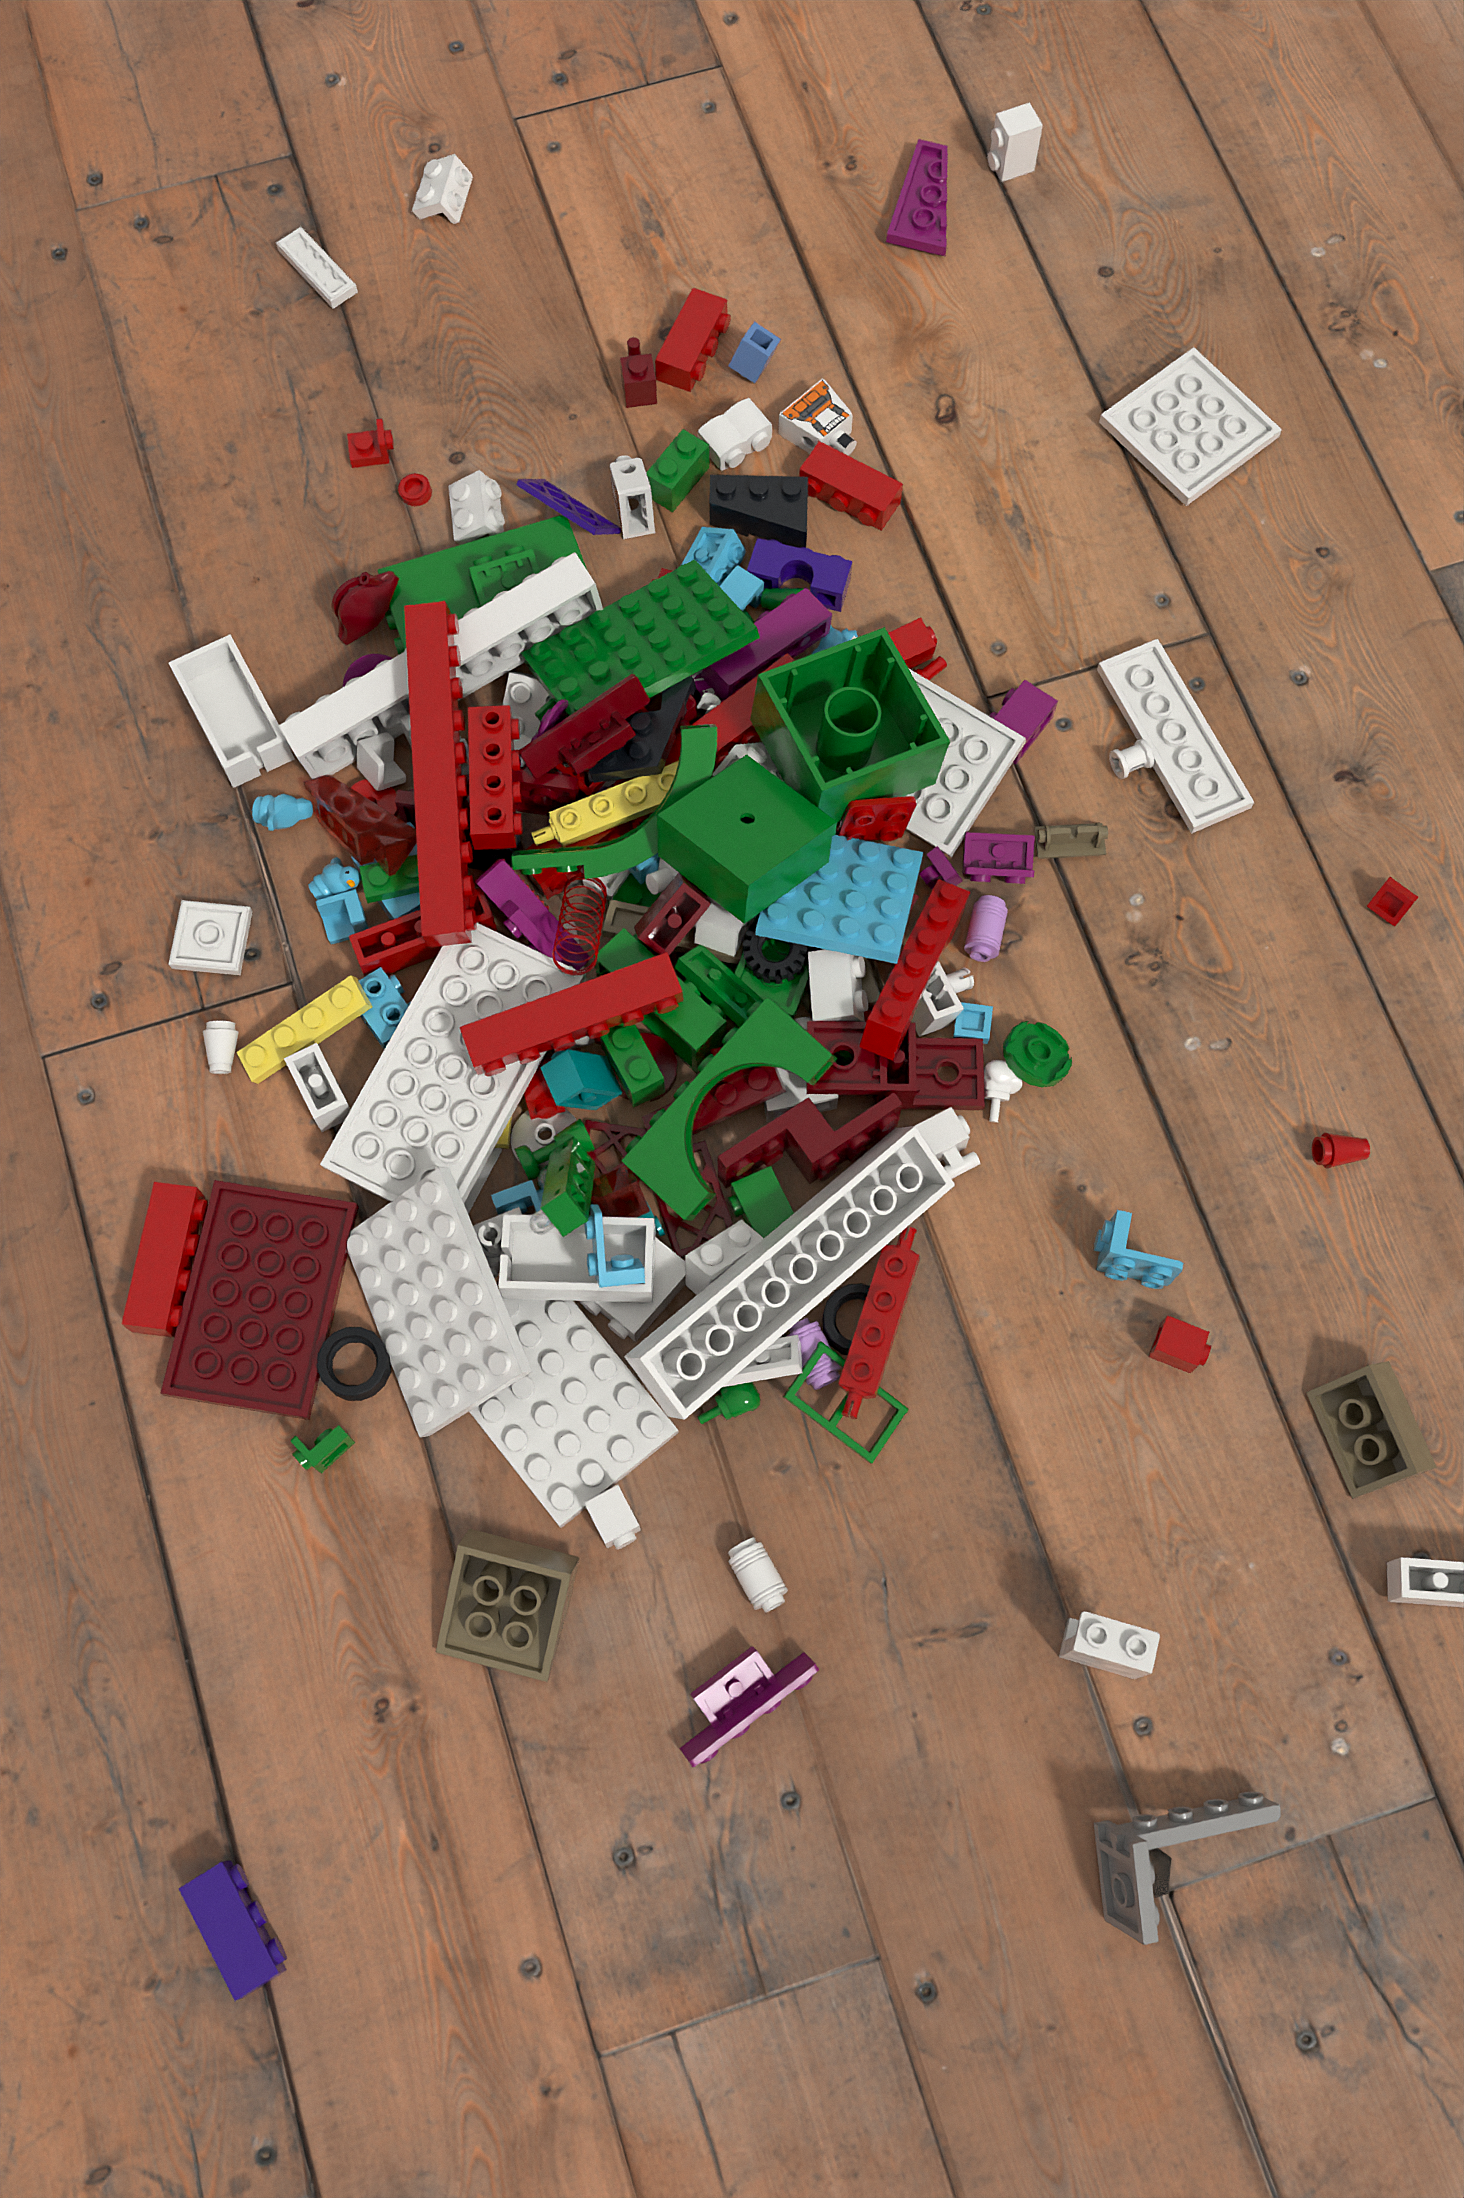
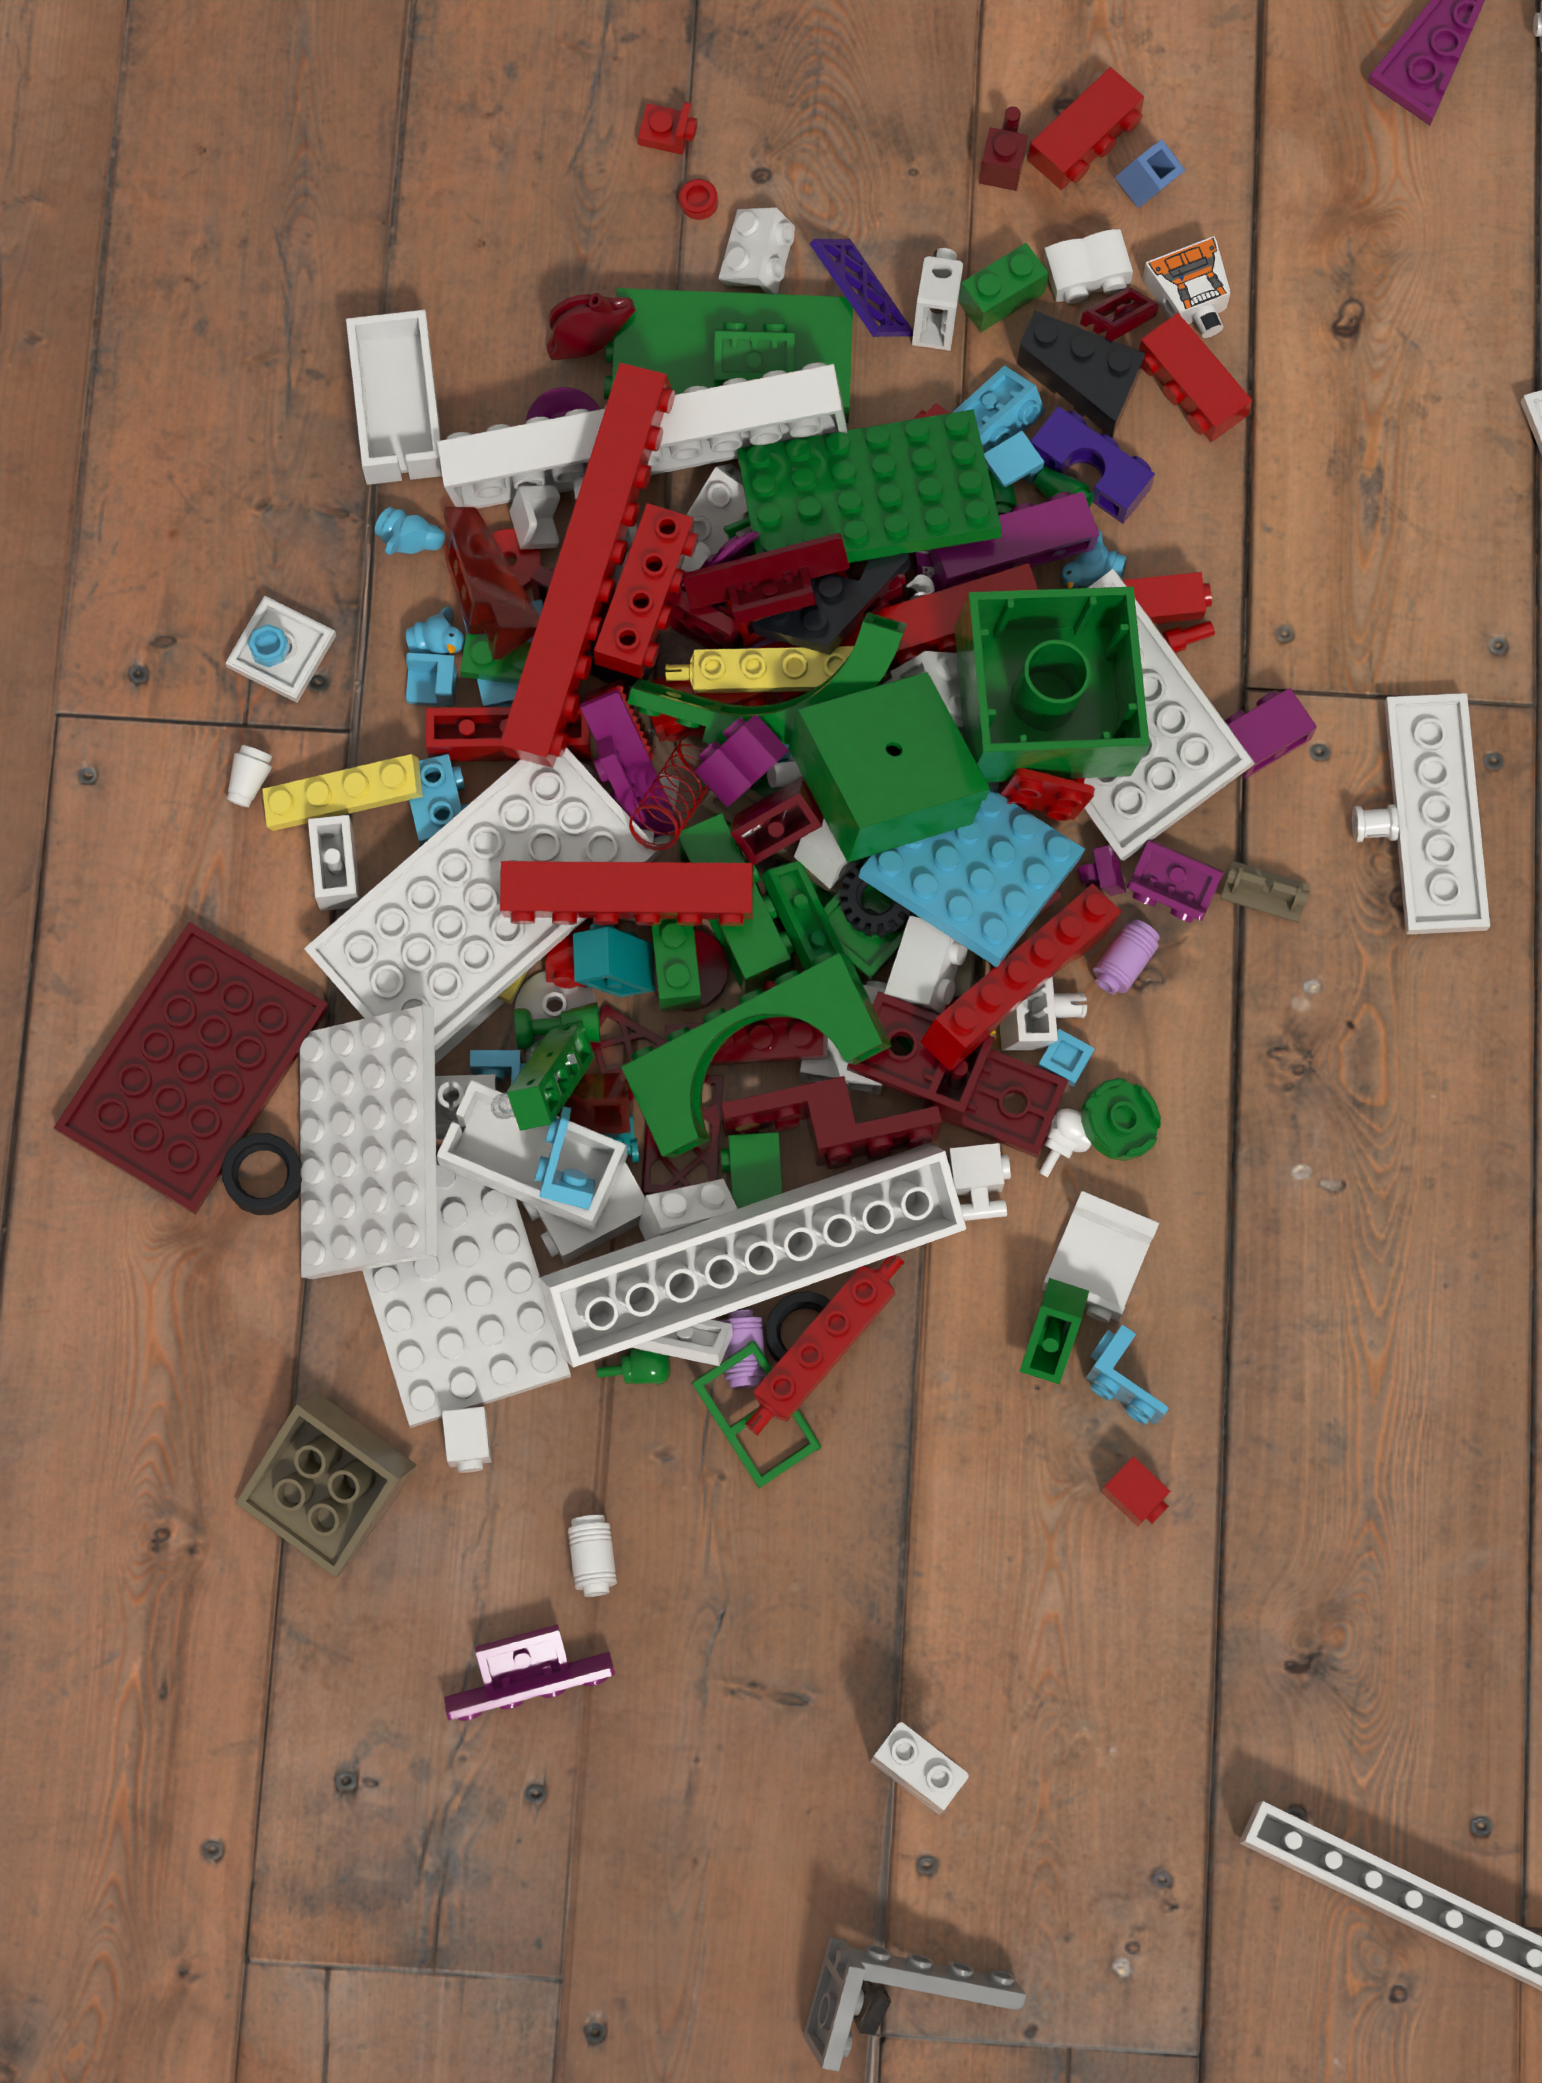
camera: 20 degrees right, 5 degrees up
(164, 1259) = (107, 987): red brick -> none
(199, 936) = (268, 645): none -> medium azure tile
(328, 1448) = (205, 1250): green bracket -> none
(623, 878) = (741, 759): none -> magenta brick
(771, 459) = (1125, 316): none -> dark red tile
(1061, 1239) = (1054, 1331): none -> green brick
(1066, 1168) = (1102, 1254): none -> white panel
(1337, 1150) = (1405, 1351): red cone -> none
(1370, 1429) = (1301, 1660): dark tan slope -> none

